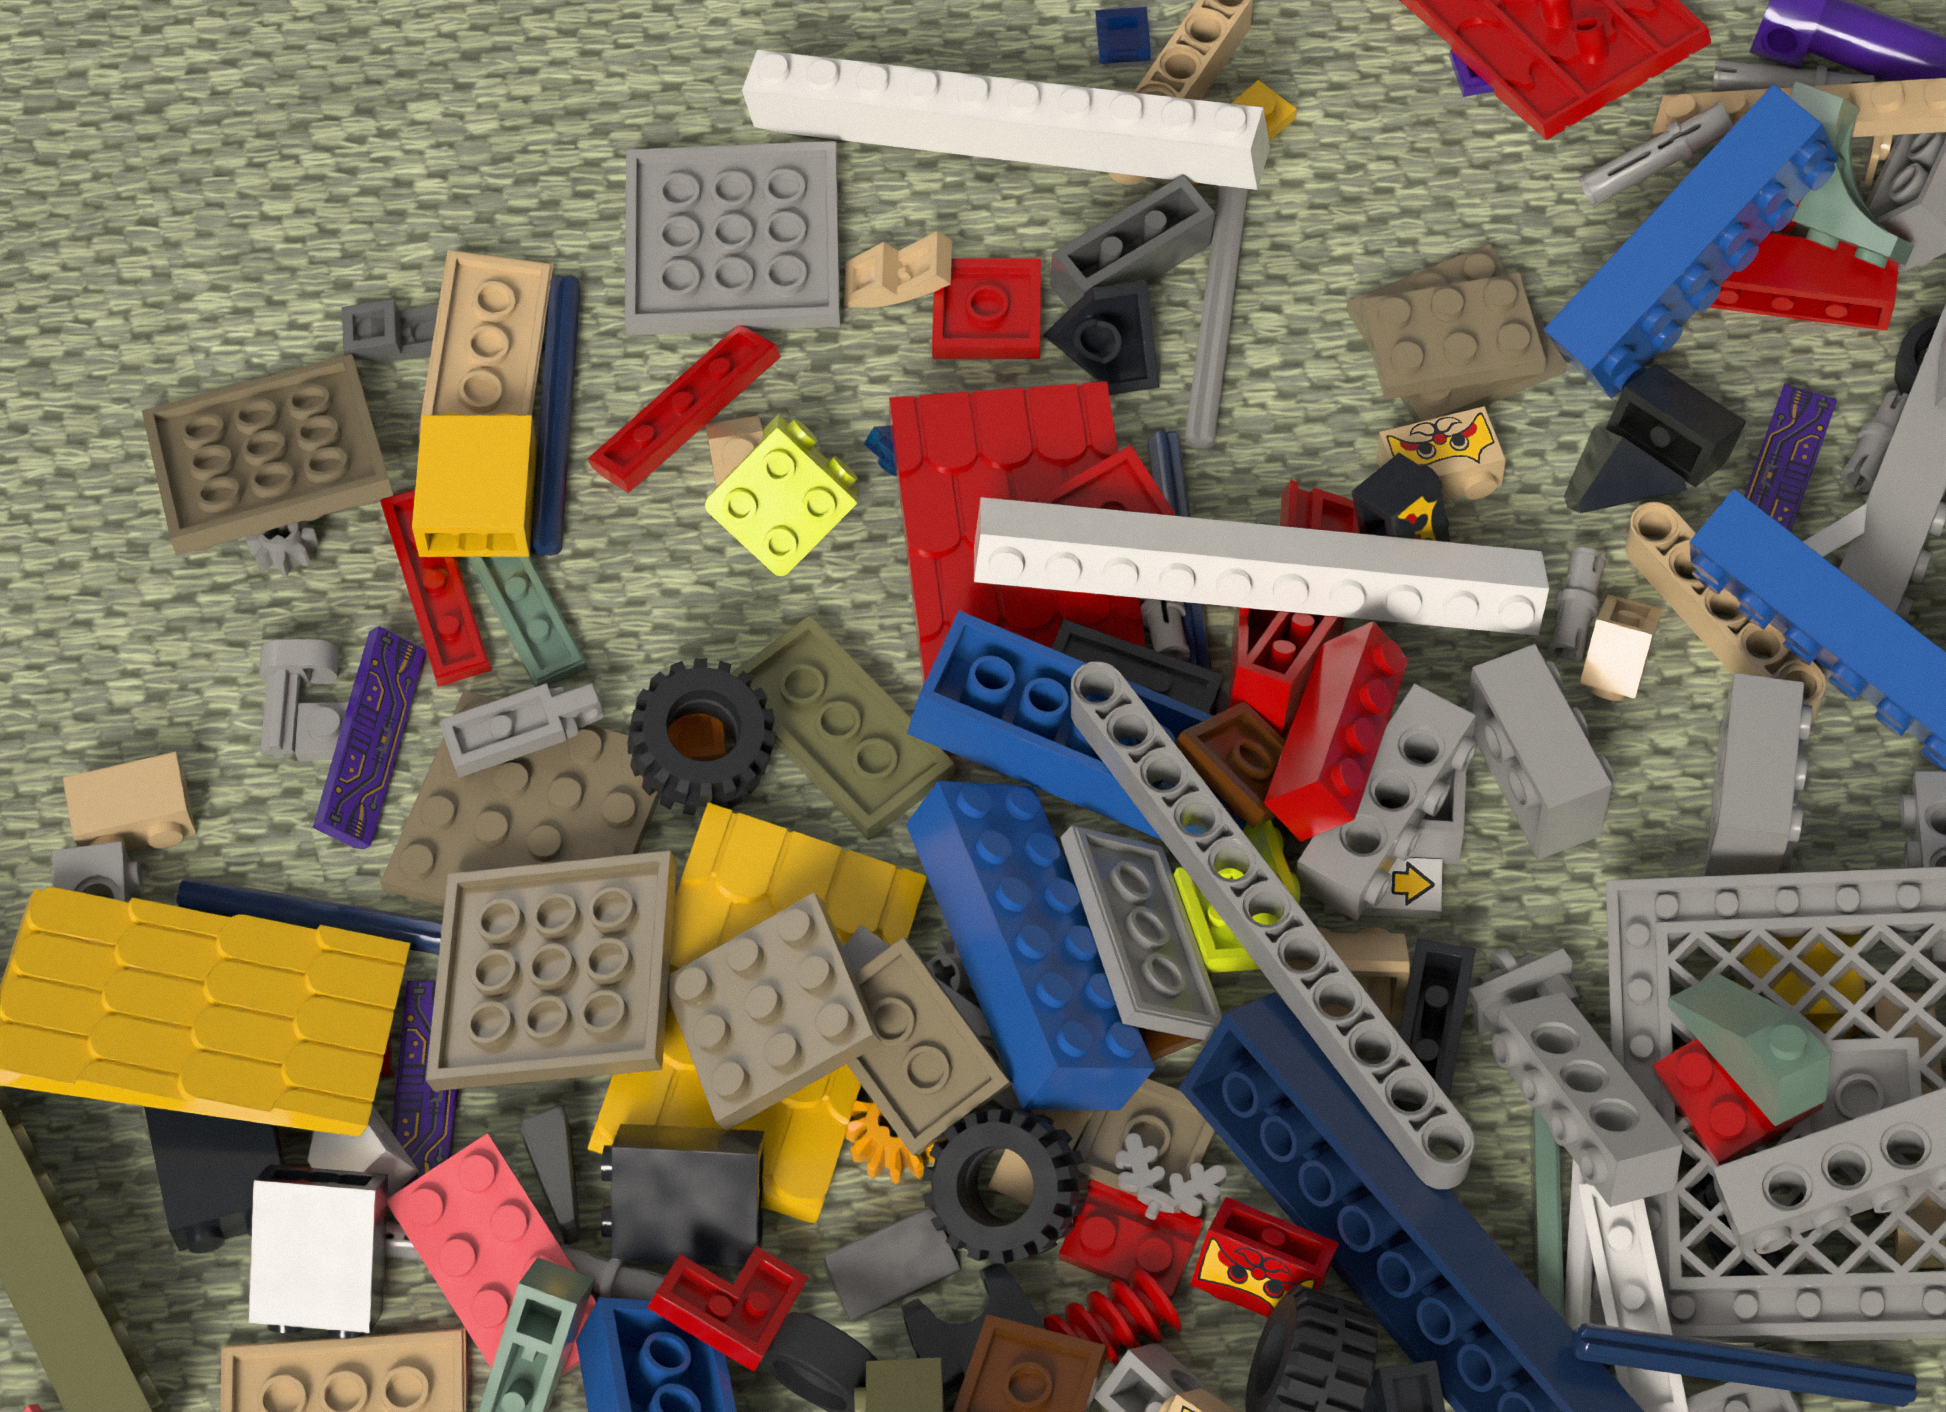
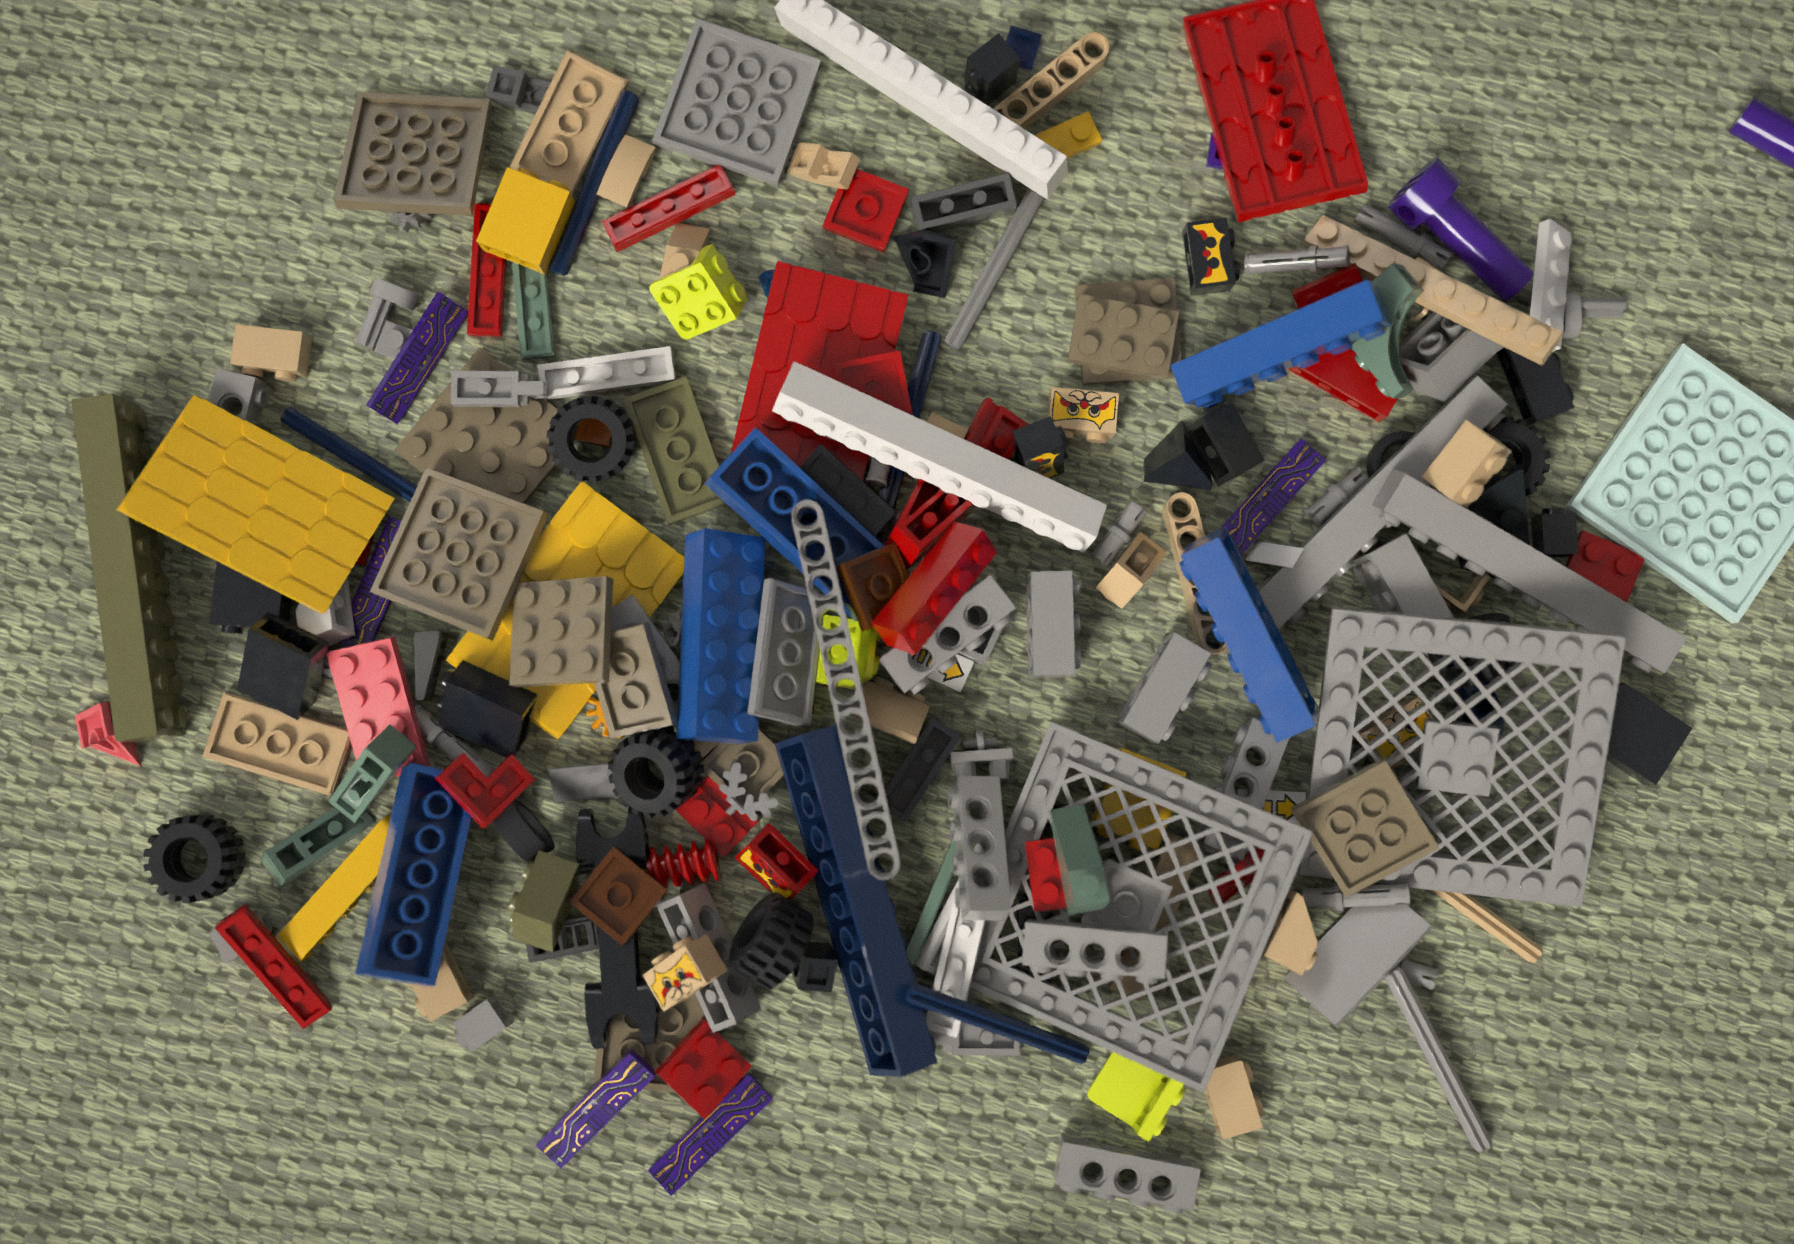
camera: 15 degrees right, 25 degrees up
(600, 381) = (626, 171): none -> tan slope
(722, 634) = (608, 372): none -> white plate
(1098, 52) = (991, 70): none -> black brick
(1527, 198) = (1210, 256): none -> black brick

